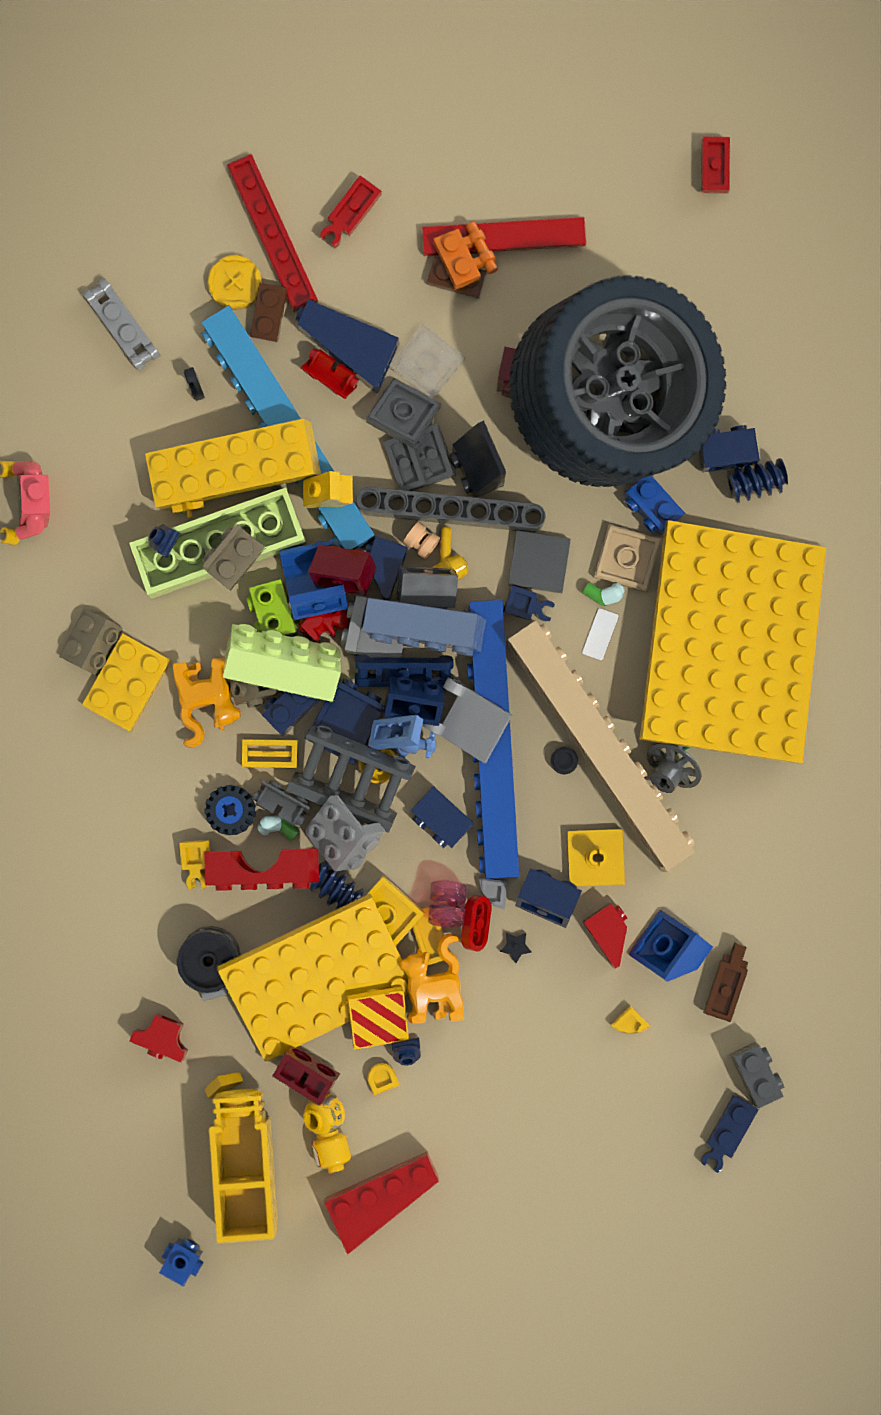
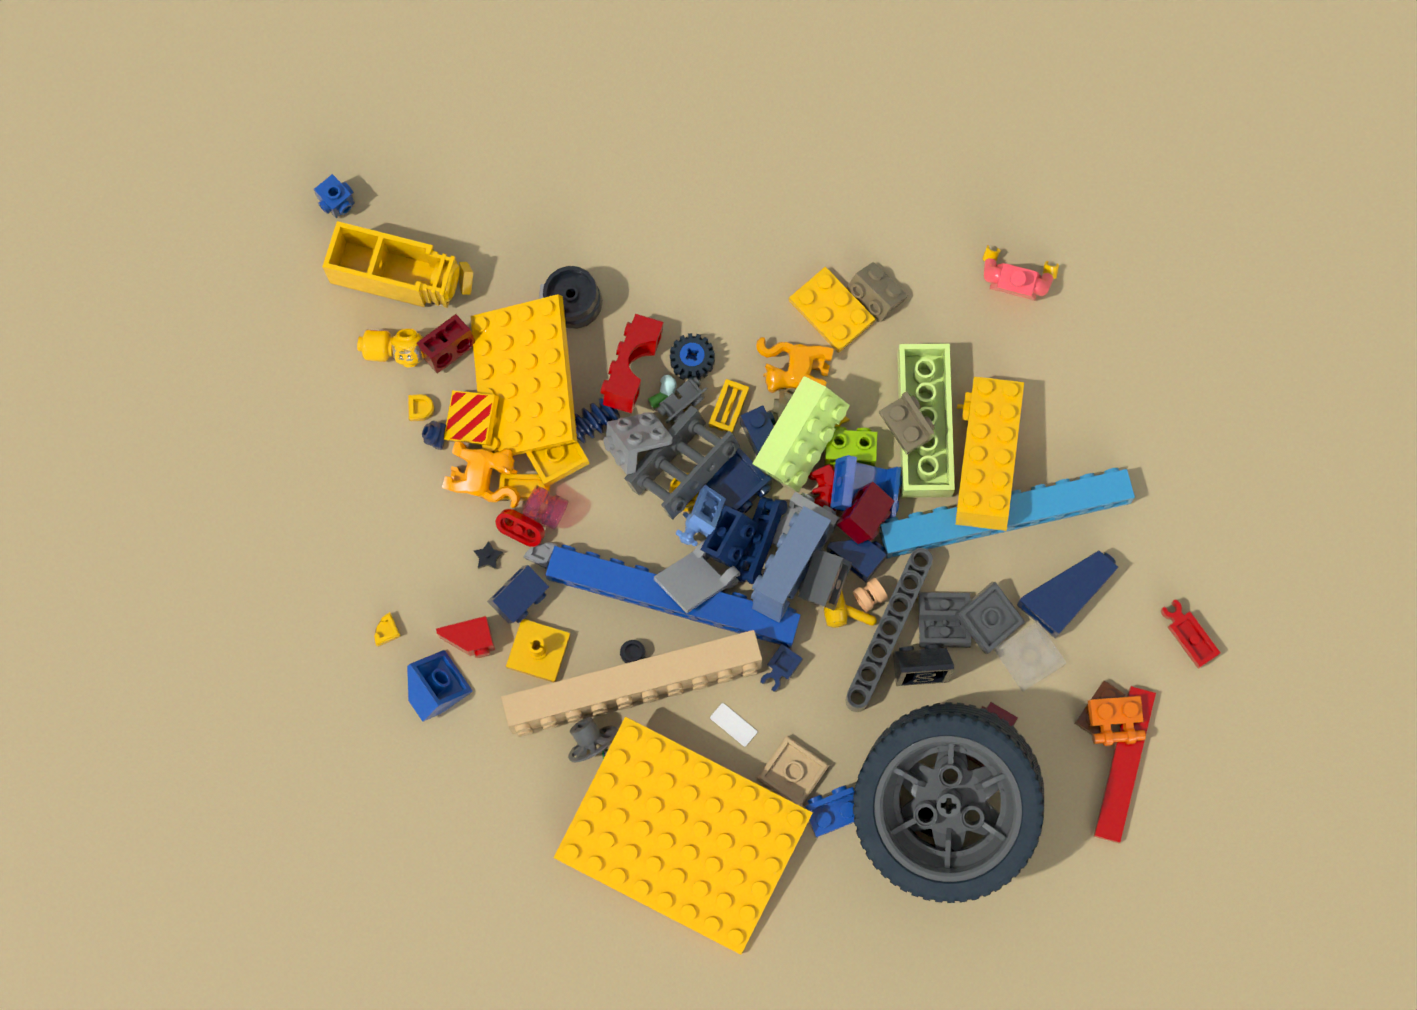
camera: 110 degrees right, 10 degrees down
(121, 324) = (1148, 405): light grey plate -> none
(161, 1038) = (521, 240): red brick -> none
(163, 539) = (942, 370): dark blue plate -> none
(193, 860) = (663, 312): yellow plate -> none
(194, 384) = (1080, 449): black tile -> none
(234, 282) = (1156, 514): yellow tile -> none
(268, 312) = (1119, 532): reddish brown plate -> none
(272, 231) = (1192, 561): red tile -> none
(328, 490) = (938, 523): yellow brick -> none
(340, 381) = (1041, 567): red hinge -> none
(378, 1199) = (320, 363): red wedge -> none
(441, 817) = (620, 529): dark blue brick -> none
(539, 562) = (816, 692): dark grey tile -> none
(604, 596) = (765, 739): arm -> none
(715, 165) = (1132, 982): red plate -> none
(727, 984) = (385, 724): reddish brown hinge -> none
(729, 449) = (860, 895): dark blue brick -> none
(729, 1131) = (260, 682): dark blue plate -> none
(754, 1069) = (298, 720): dark grey brick -> none
(757, 480) = (822, 911): dark blue piece -> none

